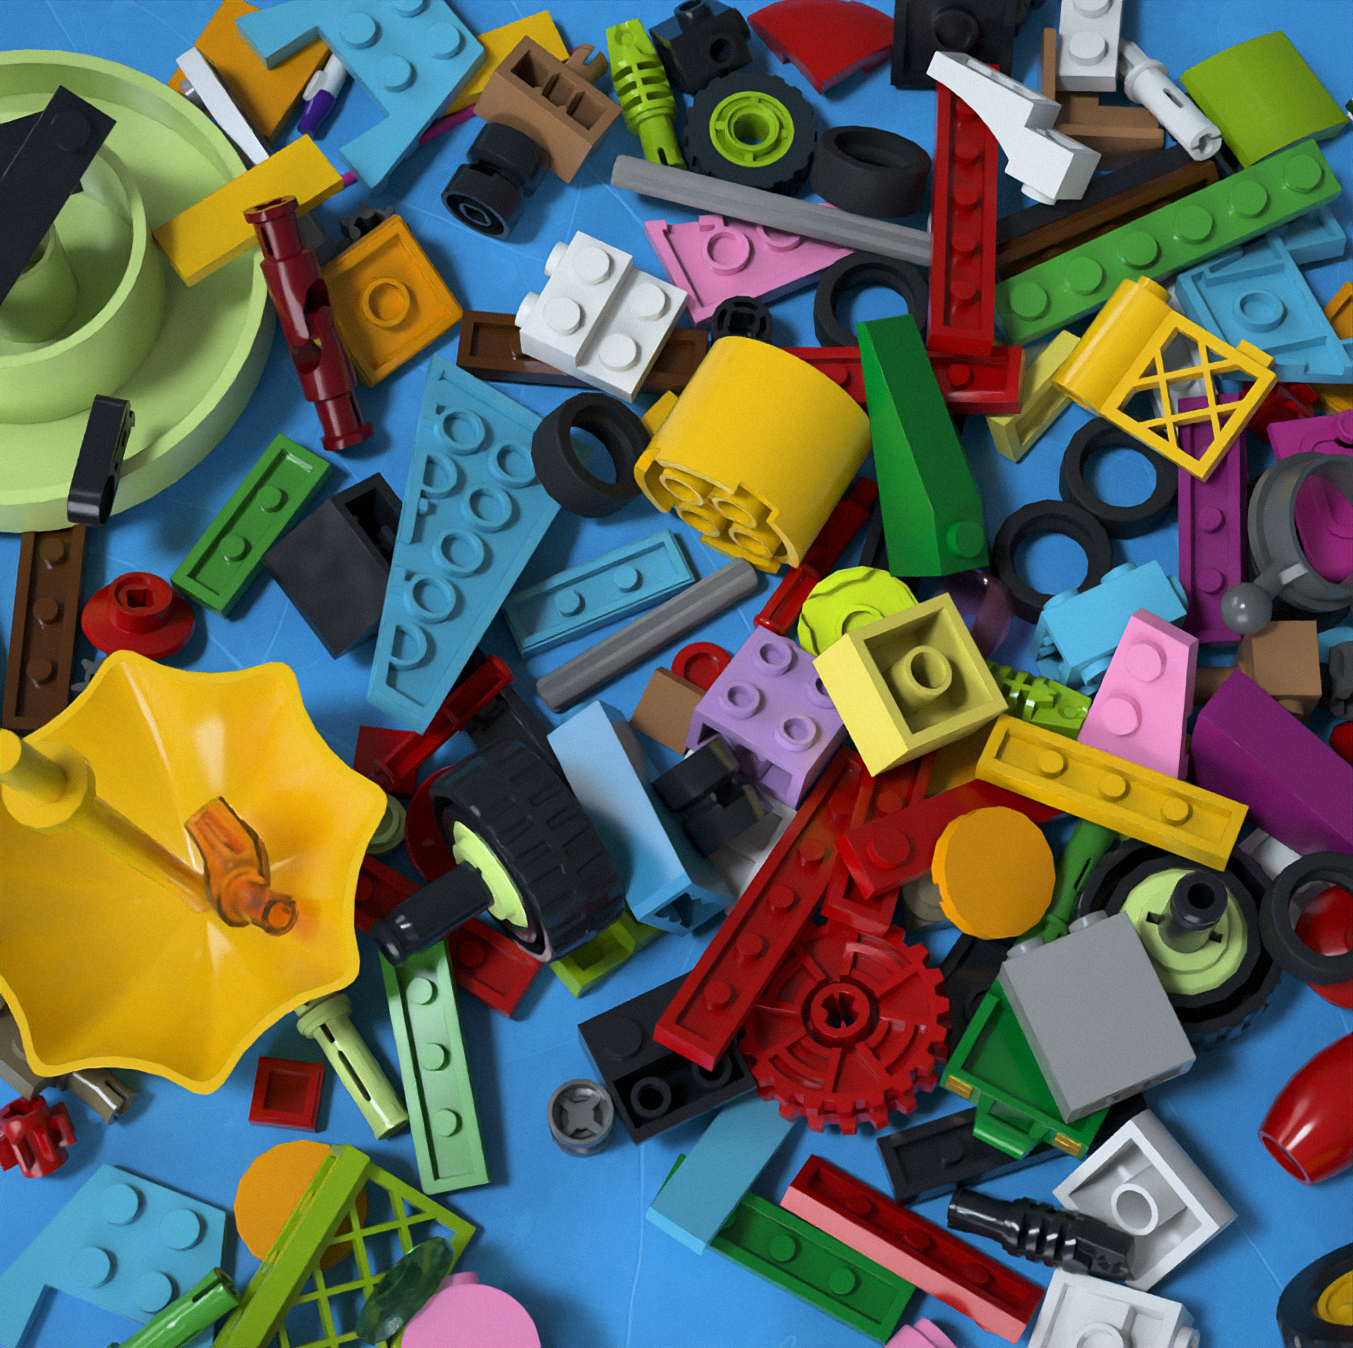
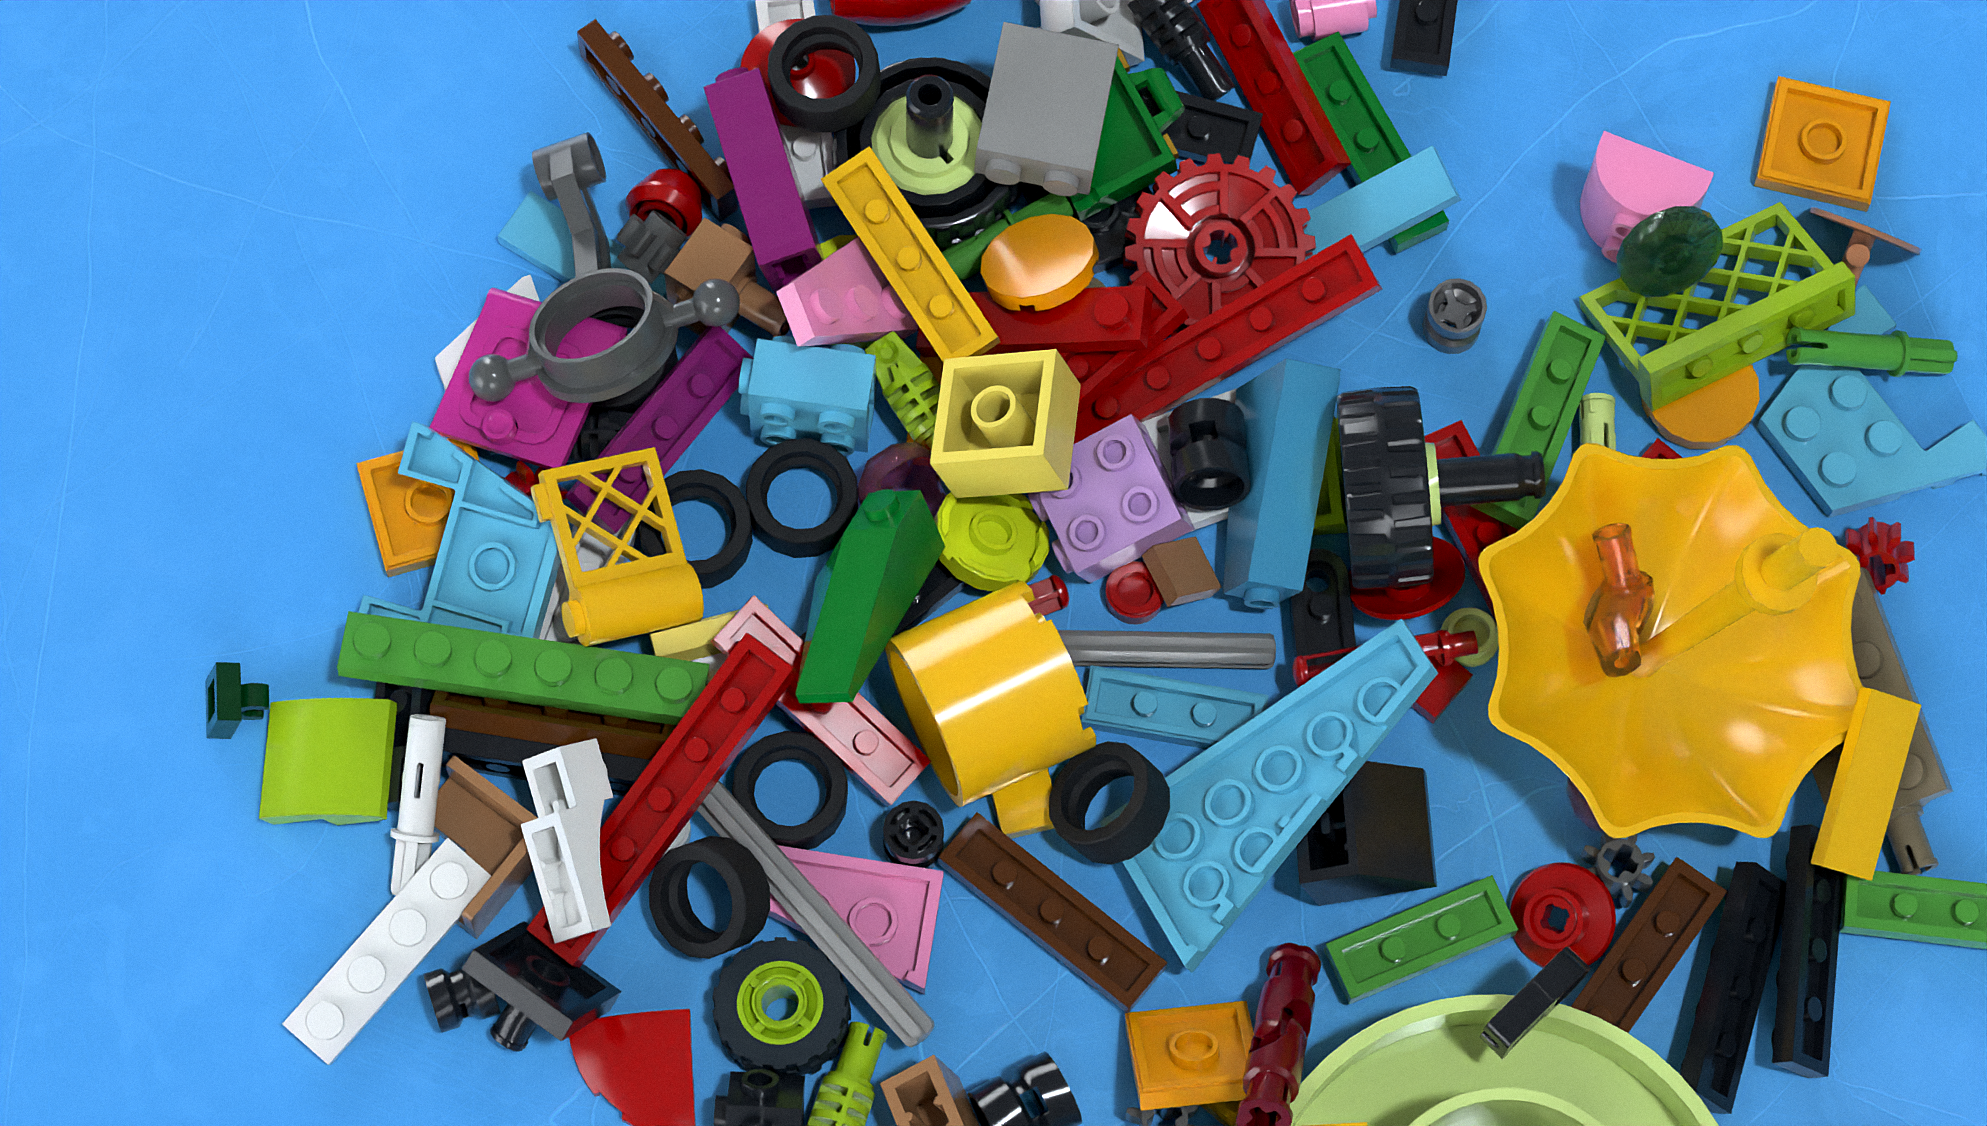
camera: 150 degrees left, 0 degrees up
(599, 316) = (1024, 914): white plate -> none
(649, 1082) = (1386, 331): black slope -> none

